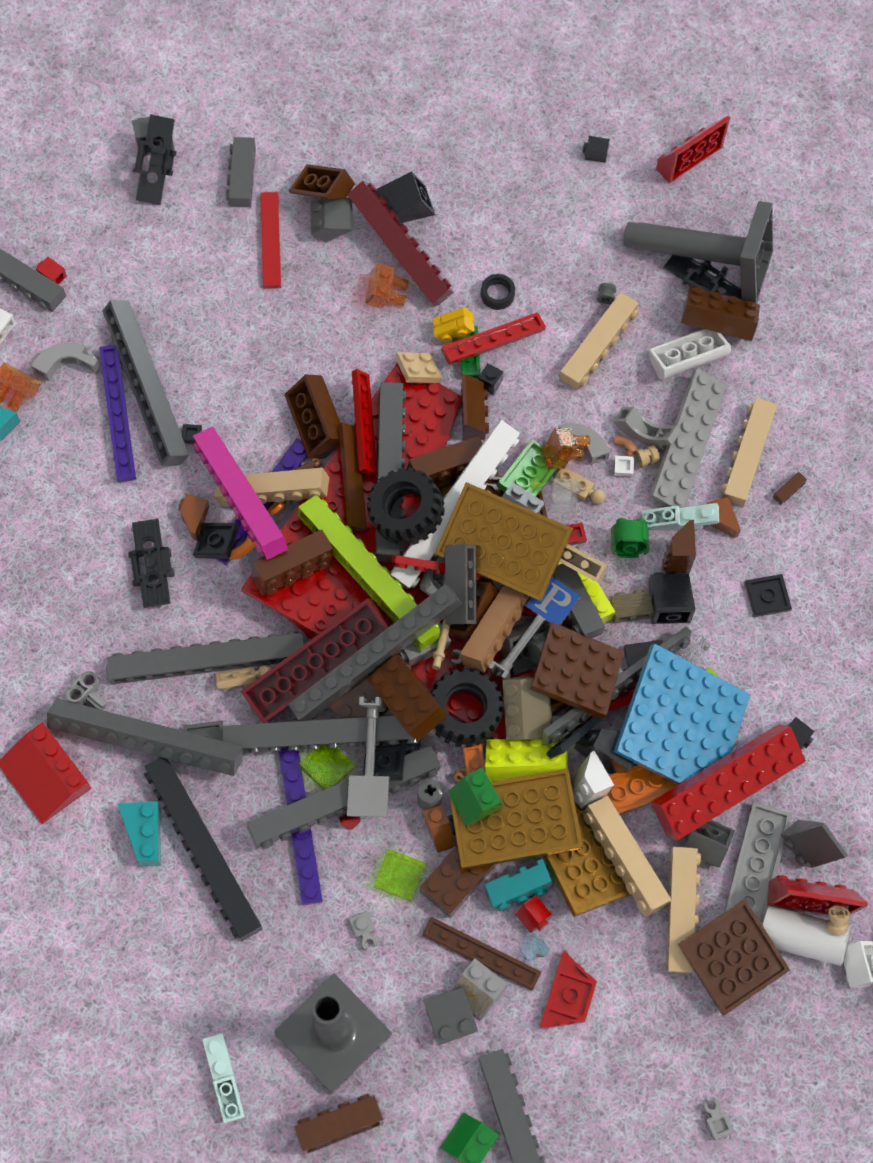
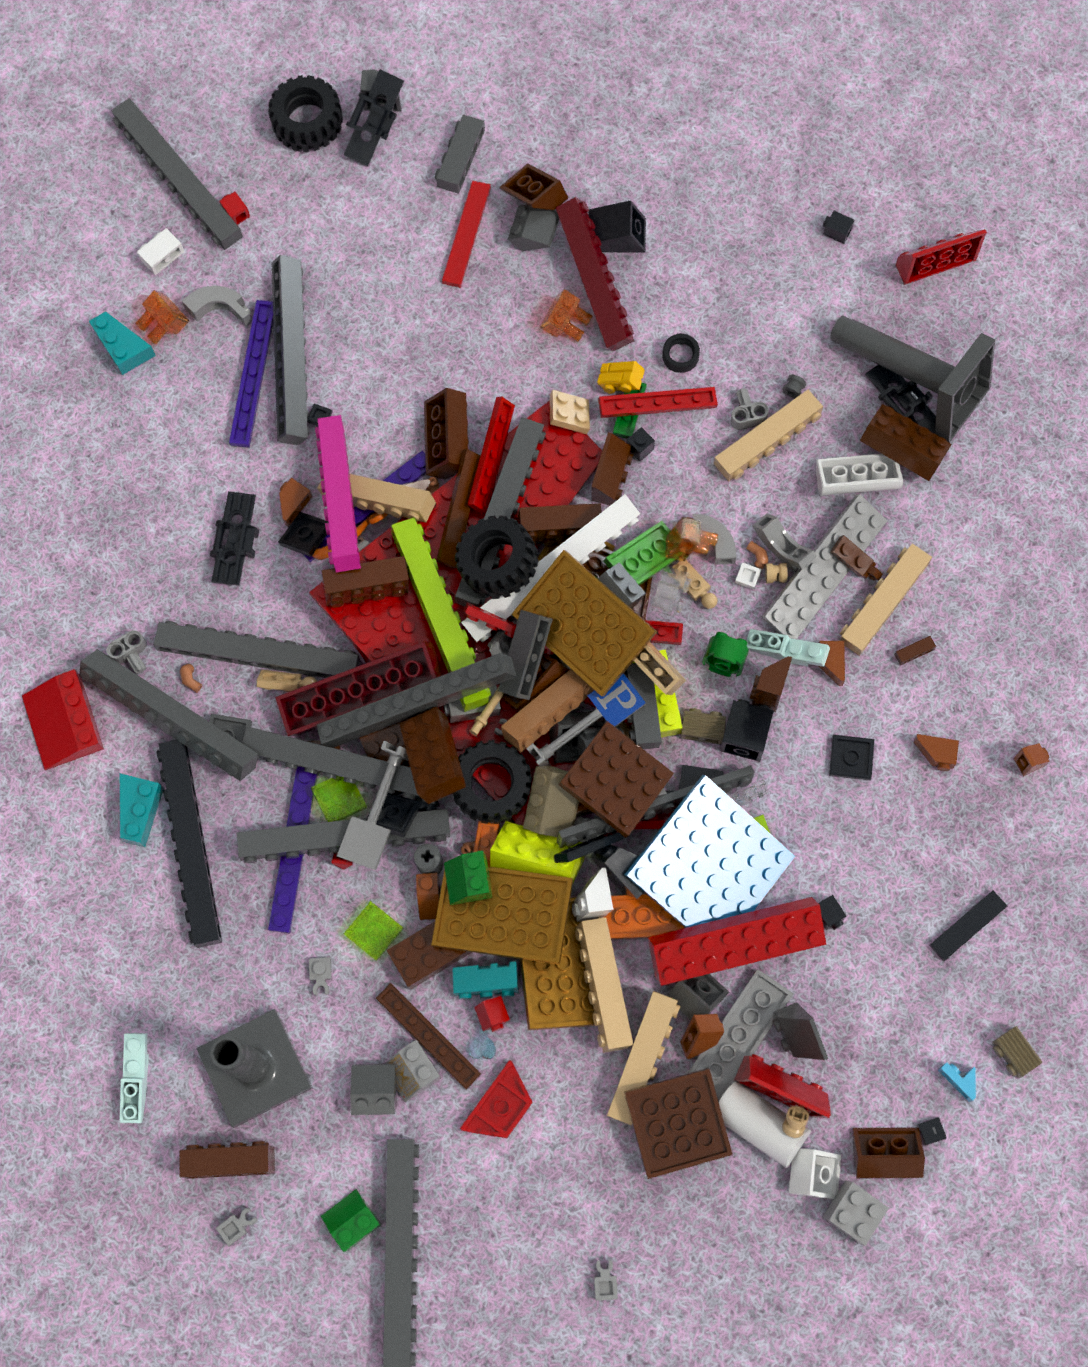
camera: 25 degrees right, 5 degrees up
(89, 153) = (299, 93): none -> black tyre
(149, 701) = (187, 678): none -> nougat arm
(574, 326) = (747, 411): none -> light grey beam
(712, 424) = (855, 559): none -> reddish brown hinge
(726, 873) = (701, 1034): none -> dark orange slope
(840, 567) = (938, 751): none -> dark orange slope

